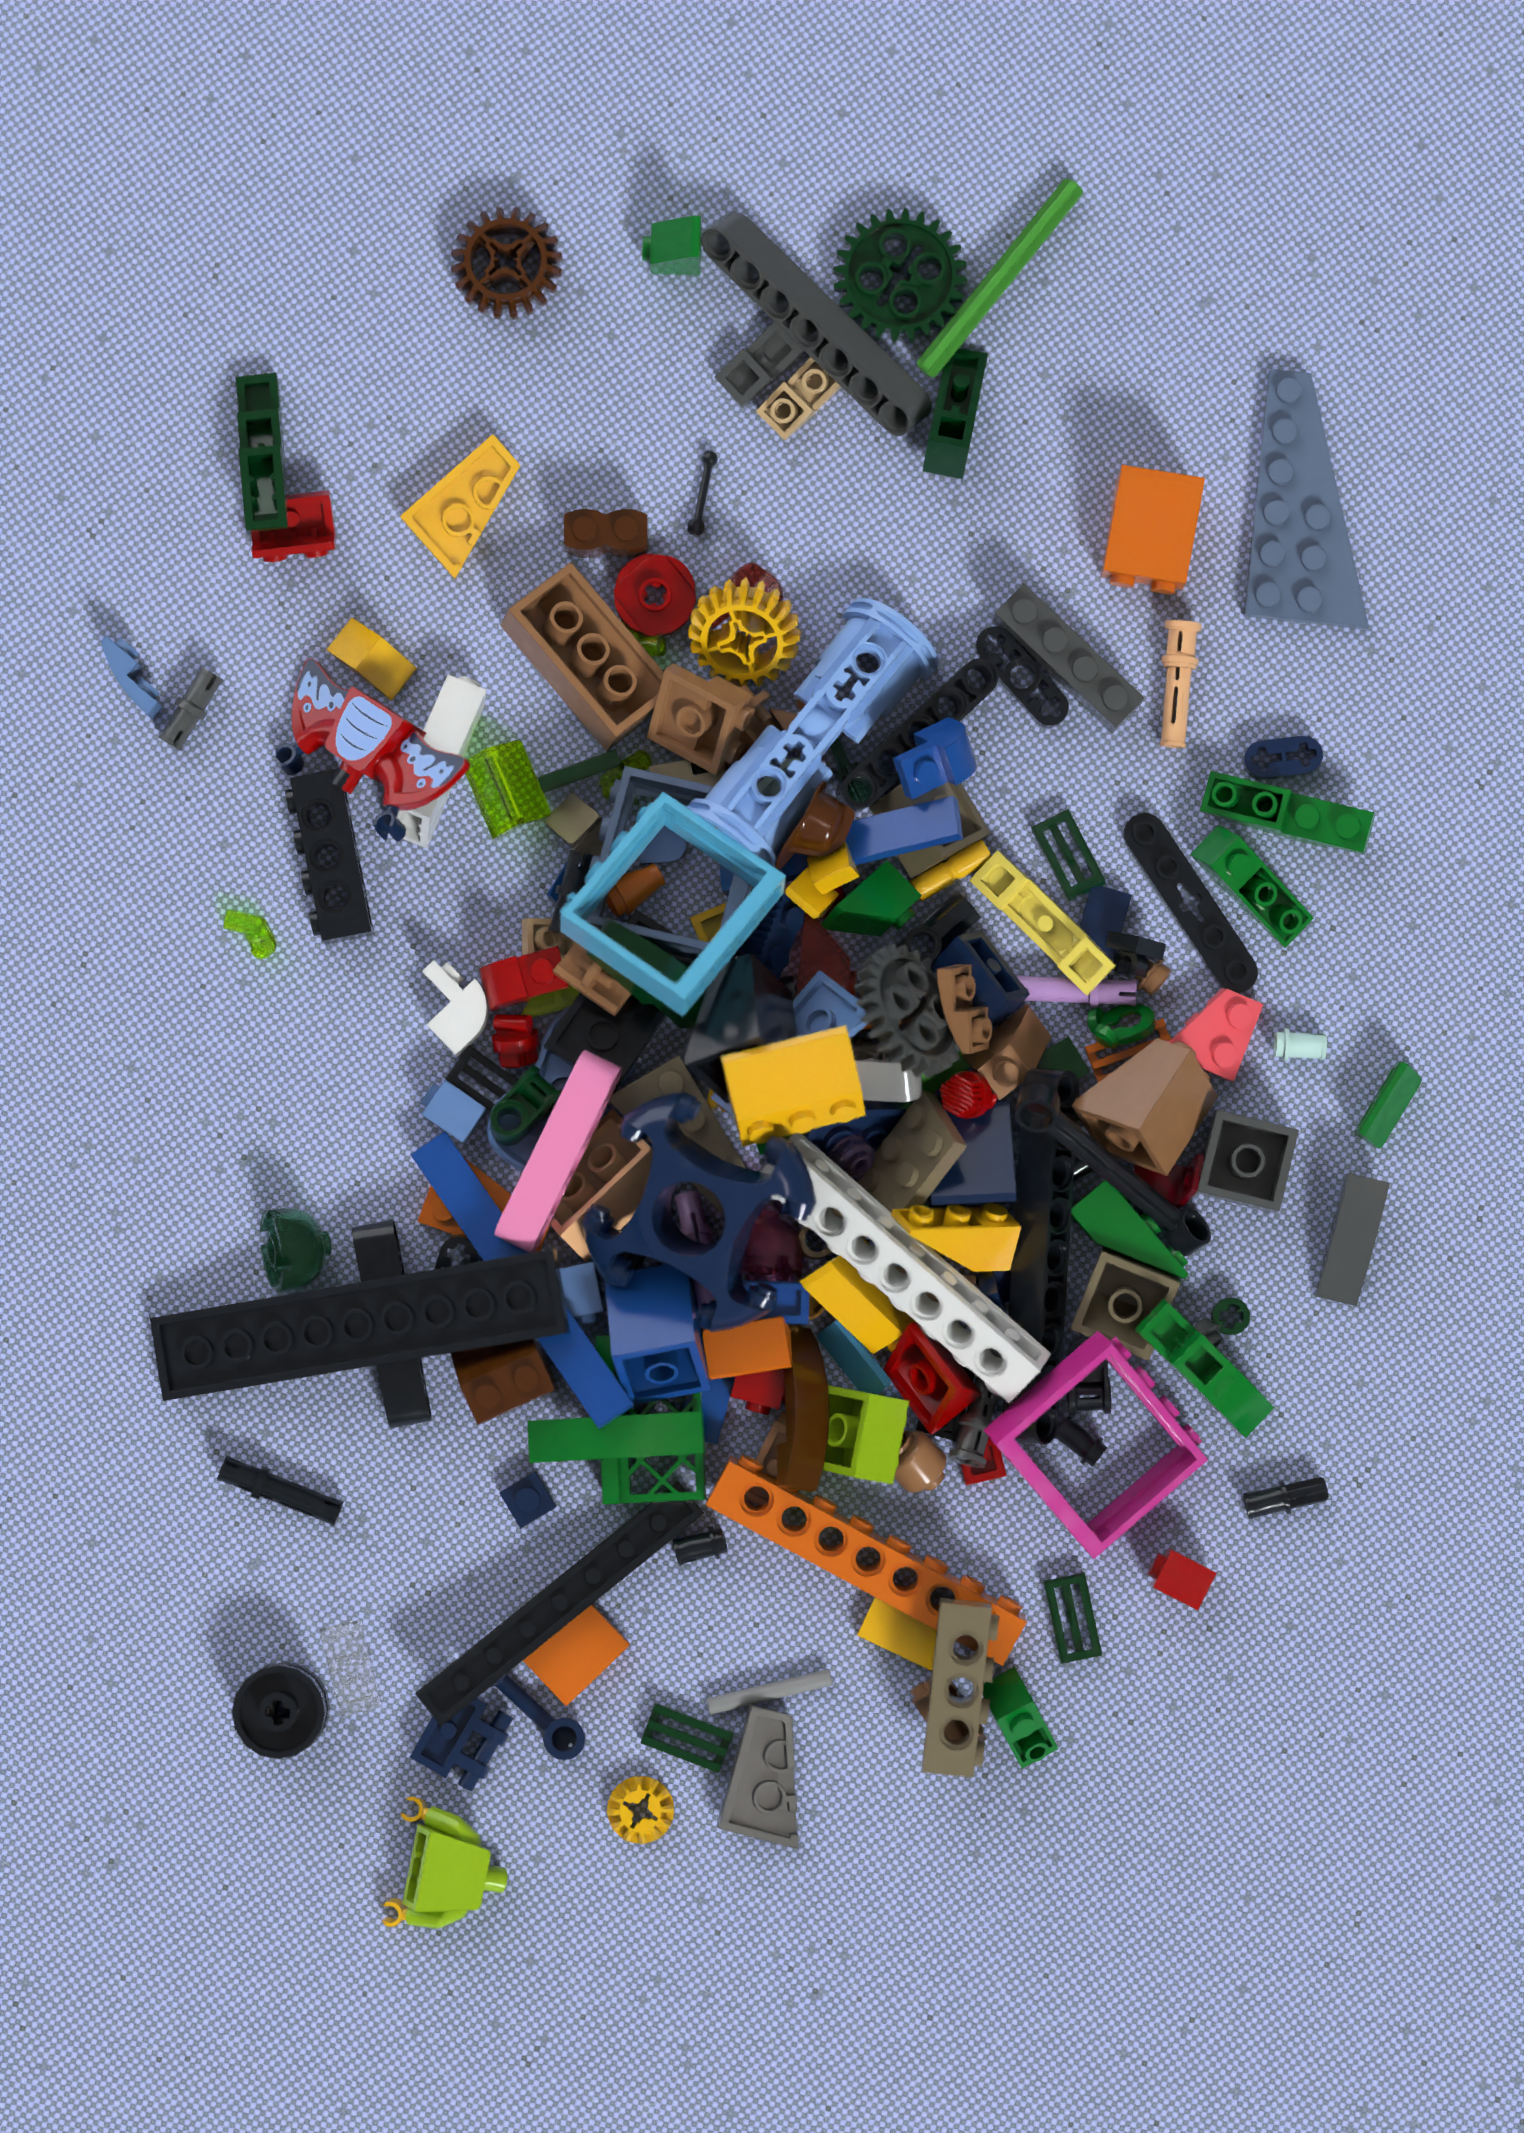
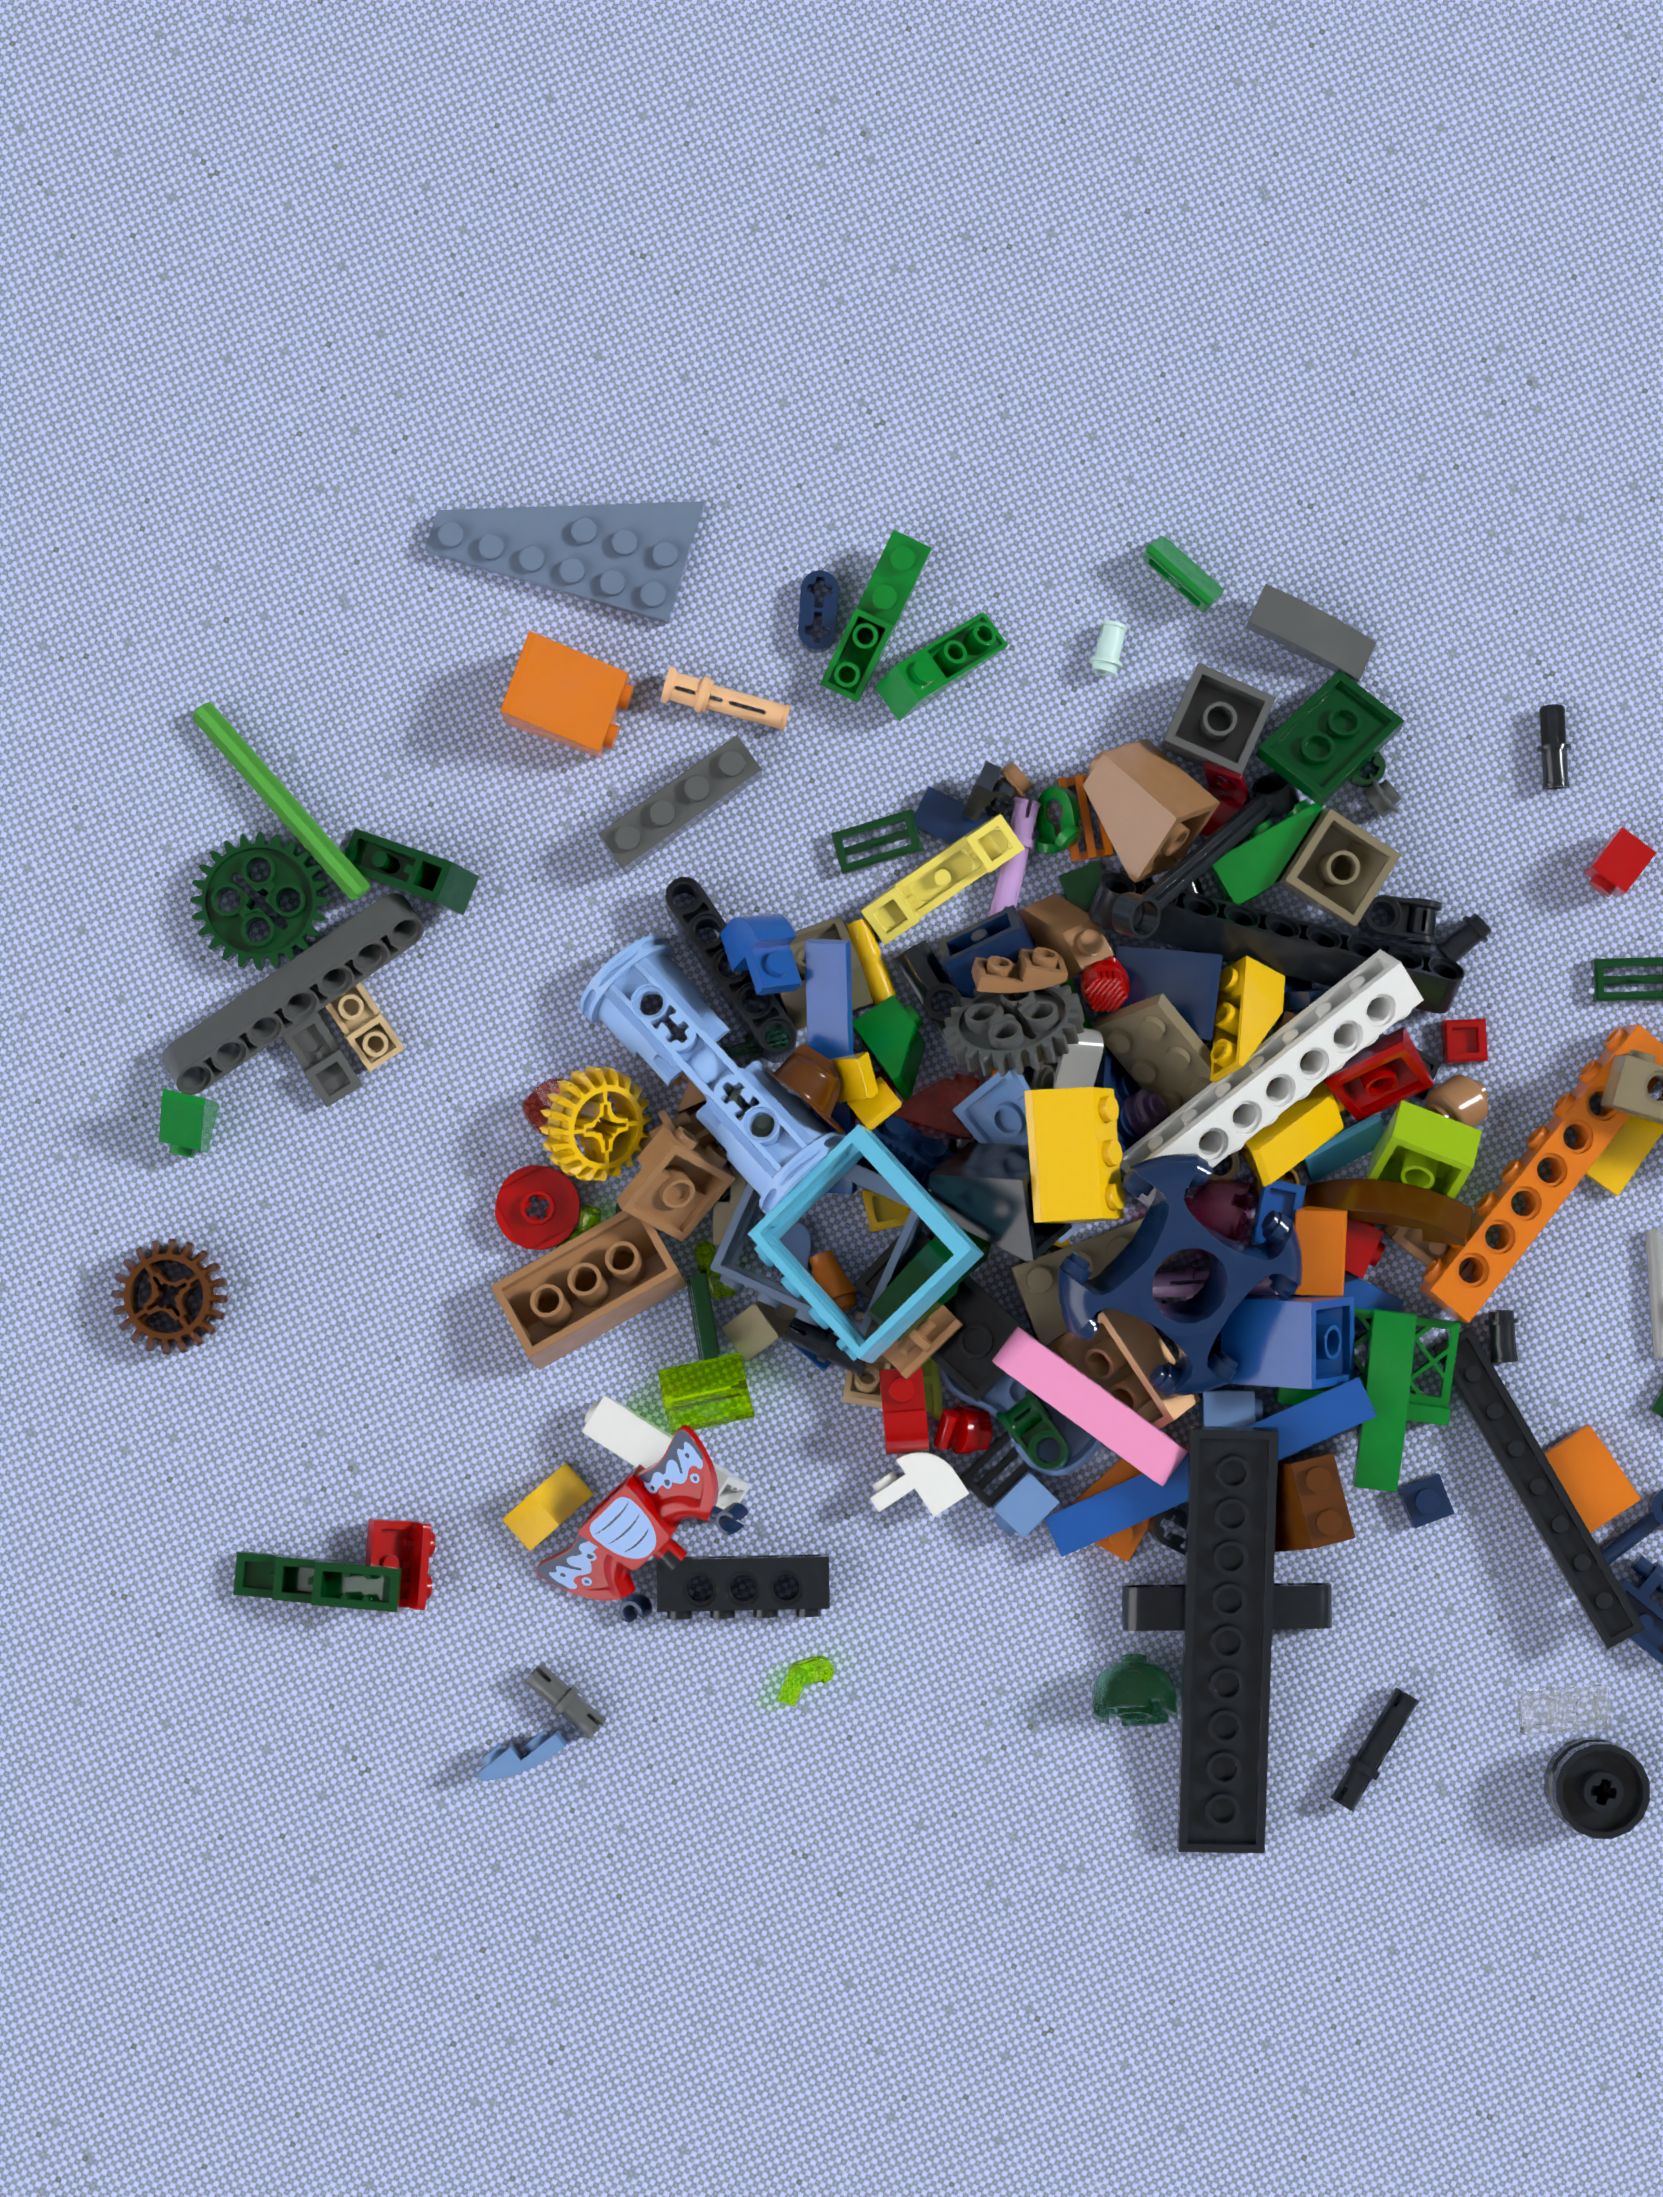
camera: 90 degrees left, 0 degrees up
(461, 504) = (408, 1387): yellow wing -> none
(619, 533) = (464, 1256): reddish brown brick -> none
(696, 526) = (474, 1153): black hinge -> none
(972, 1438) = (1436, 1040): dark grey pin -> none
(1050, 693) = (711, 830): black beam -> none
(1143, 1493) = (1528, 889): dark pink window -> none
(1165, 869) = (986, 716): black piece -> none
(1204, 1368) = (1416, 801): green slope -> none
(1221, 1032) = (1082, 724): coral wing -> none
(1251, 1273) = (1329, 738): none -> dark green plate

